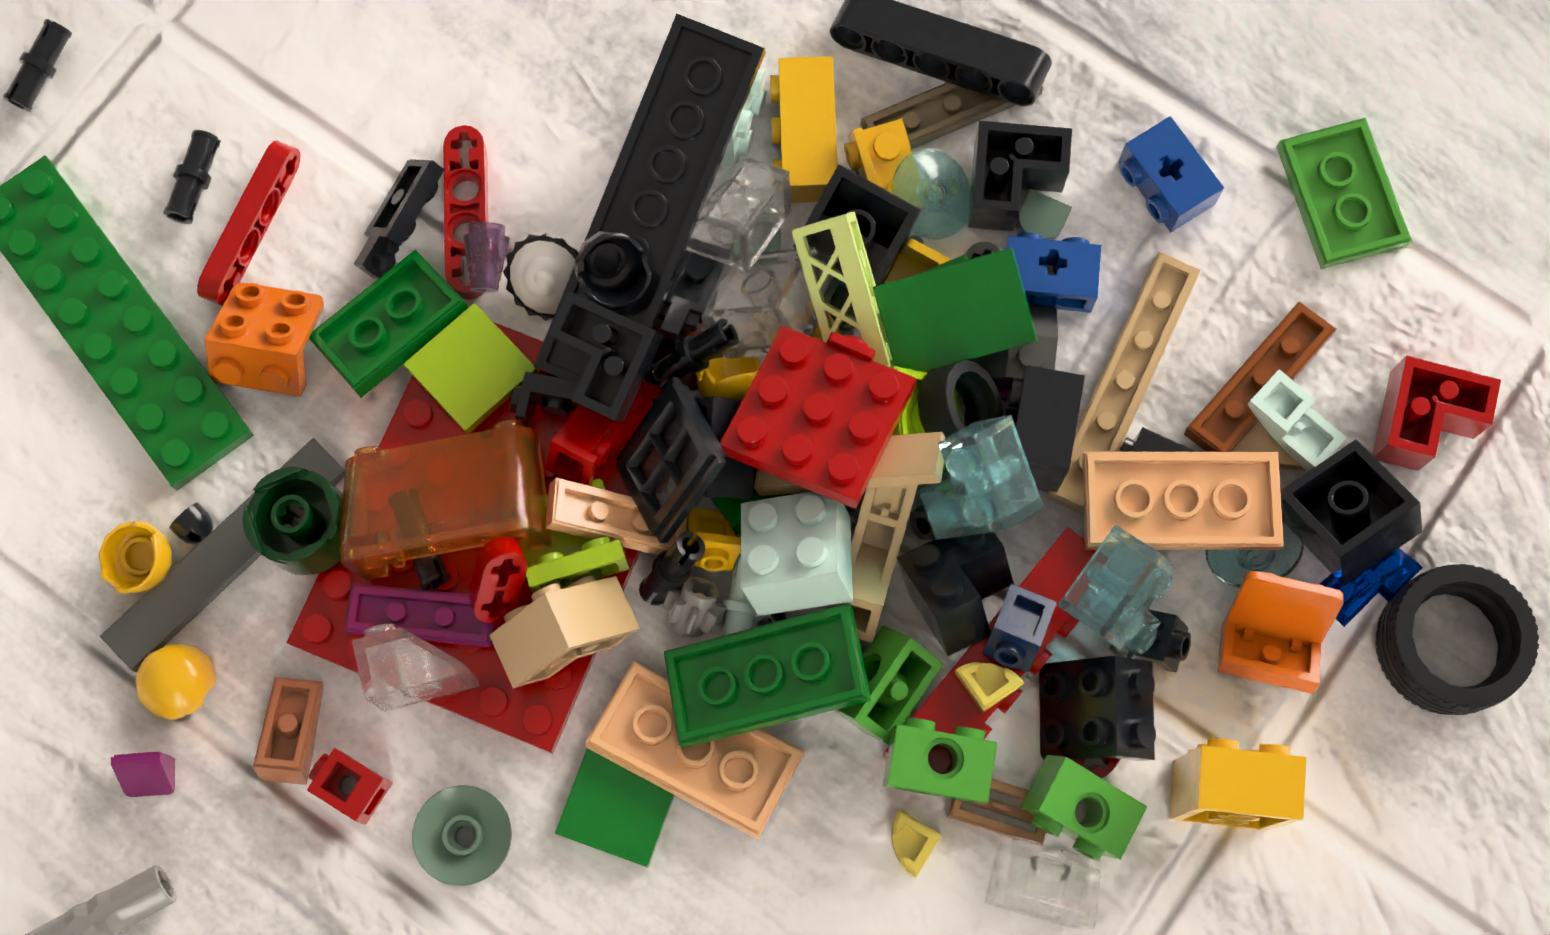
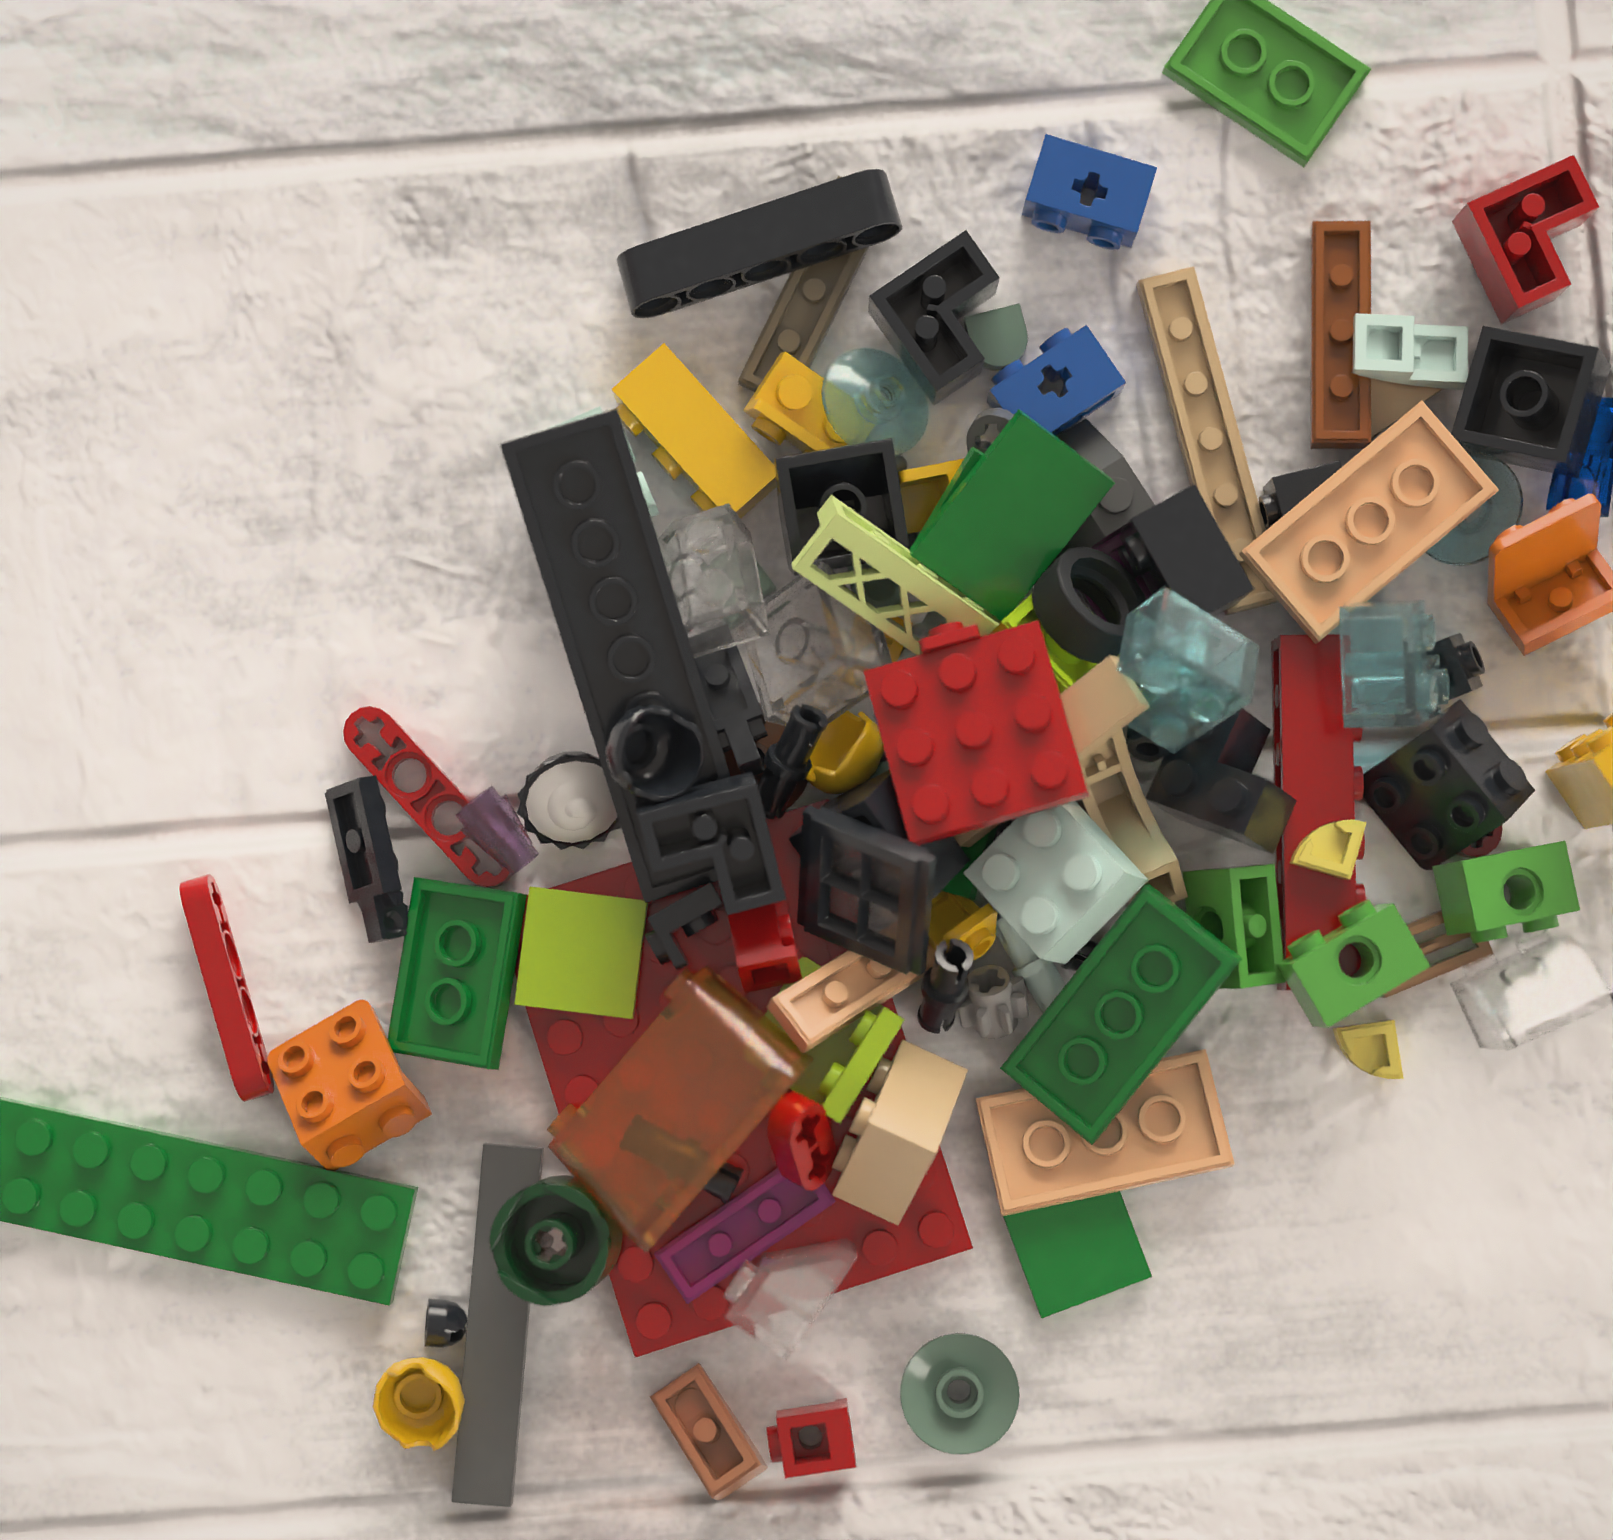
camera: 35 degrees left, 10 degrees up
(174, 680) = (560, 1480): yellow hair -> none
(192, 177) = (125, 988): black pin -> none
(1019, 628) = (1321, 773): dark blue bracket -> none

